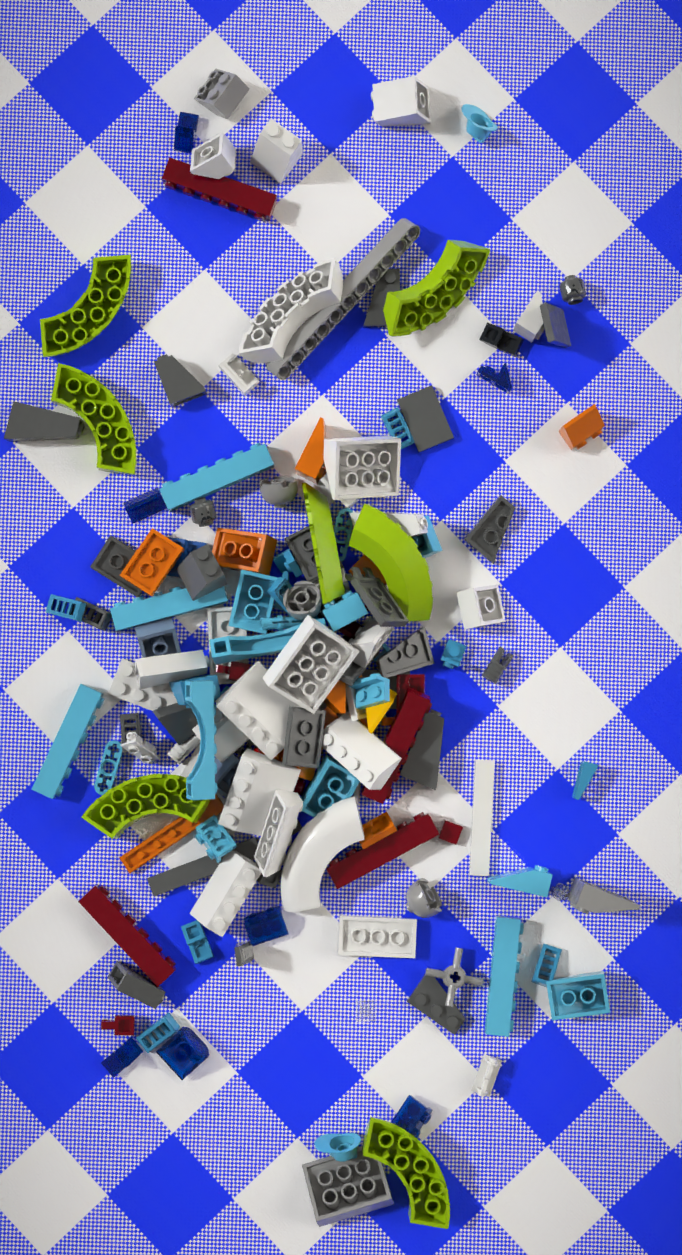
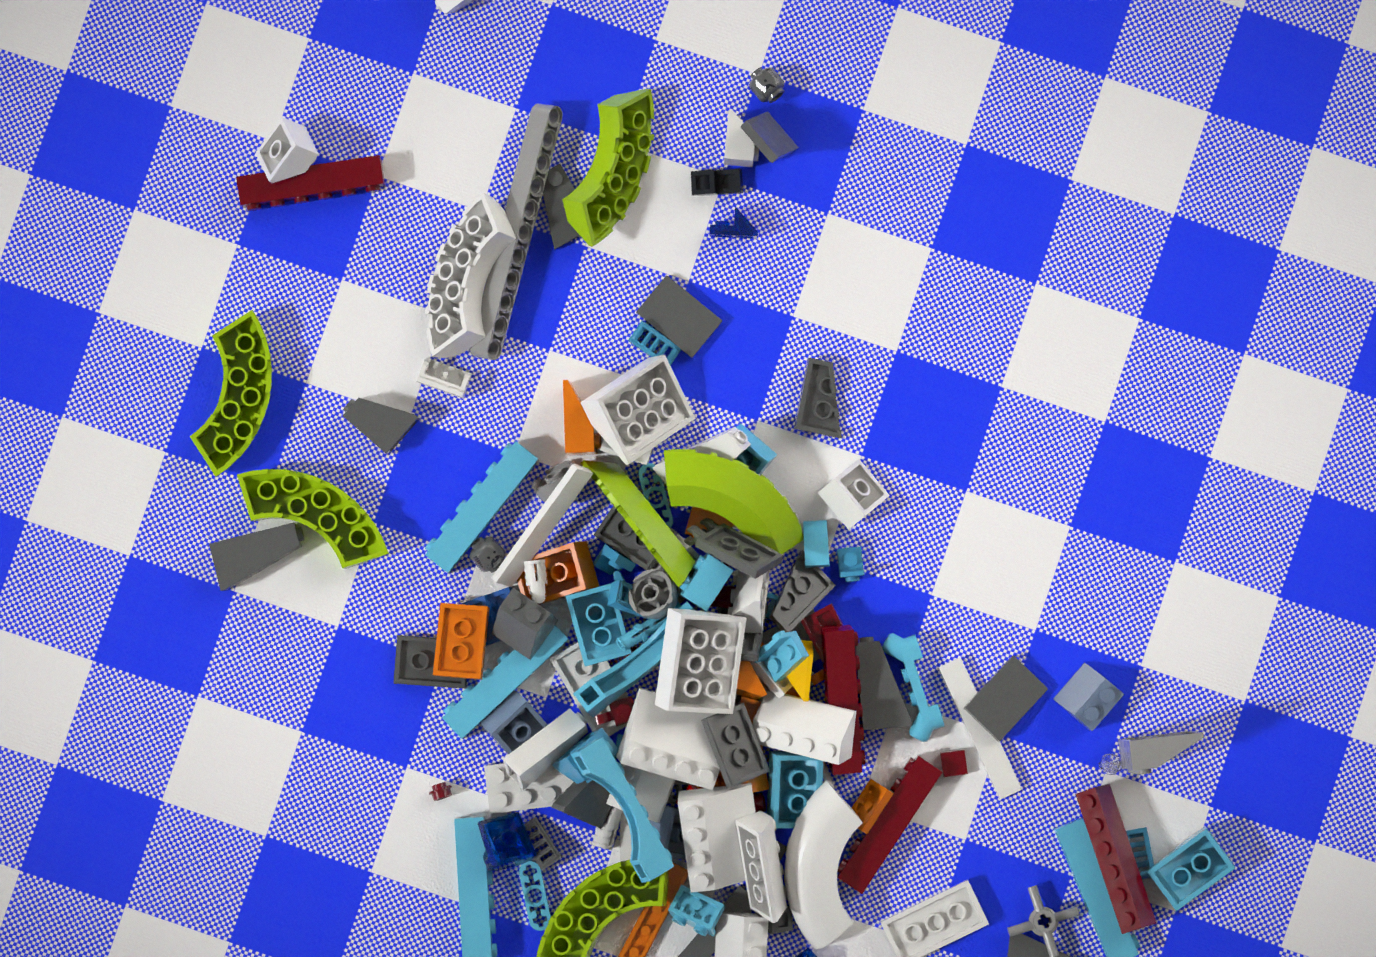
camera: 25 degrees left, 0 degrees up
(78, 611) = (408, 740): dark azure slope -> none
(82, 659) = (440, 791): none -> dark red plate
(105, 620) = (443, 736): dark grey slope -> none
(107, 719) = (505, 842): none -> clear blue slope
(141, 749) = (559, 855): white hinge -> none
(145, 505) = (417, 581): clear blue slope -> none
(185, 132) = (238, 137): clear blue slope -> none
(222, 93) = (255, 71): light grey slope -> none
(224, 553) = (537, 588): none -> white hinge
(251, 511) = (542, 525): none -> white tile
(276, 151) = (353, 106): white slope -> none
(423, 900) = (963, 855): light grey cylinder -> none
(436, 627) = (816, 543): none -> medium azure slope
(449, 790) = (928, 717): none -> medium azure plate
(495, 669) = (906, 555): dark grey hinge -> none
(511, 806) = (1005, 698): none -> dark grey tile
(527, 880) = (1065, 771): medium azure slope -> none
(528, 960) = (1115, 858): none -> dark red brick
(570, 836) = (1088, 696): none -> sand blue slope
(582, 427) = (859, 234): orange slope -> none
(584, 776) = (1069, 622): dark azure slope -> none

